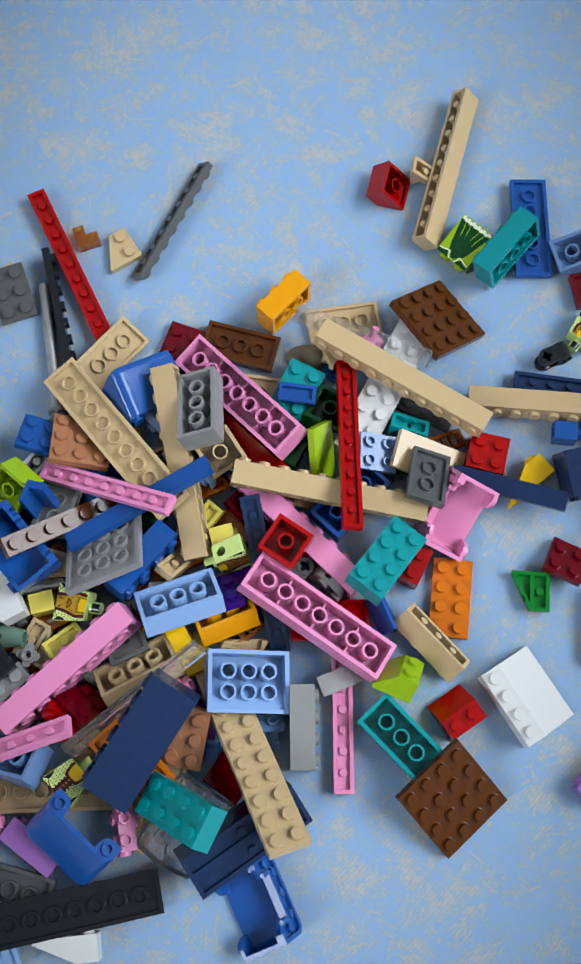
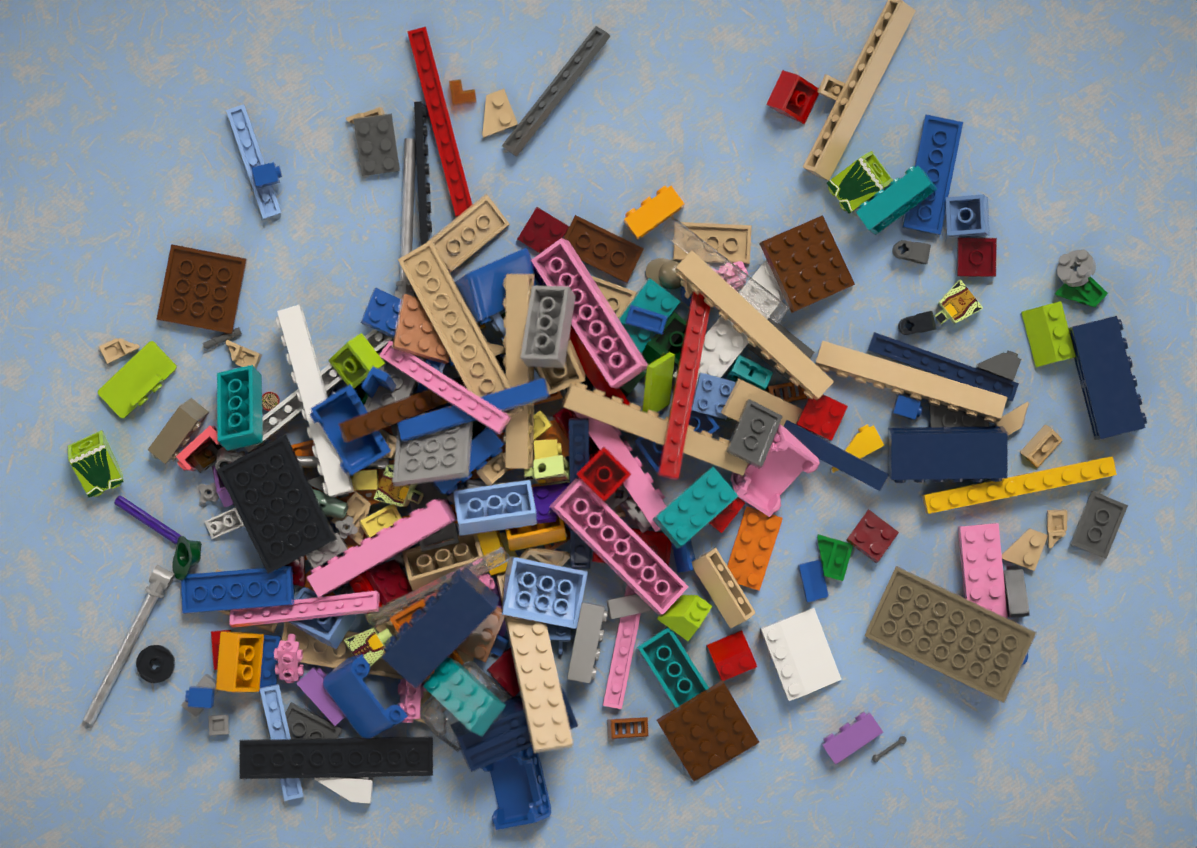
camera: 15 degrees right, 15 degrees up
(347, 817) = (611, 727): none -> dark orange slope
(518, 618) = (813, 580): none -> blue panel
(531, 295) = (915, 251): none -> dark grey piece

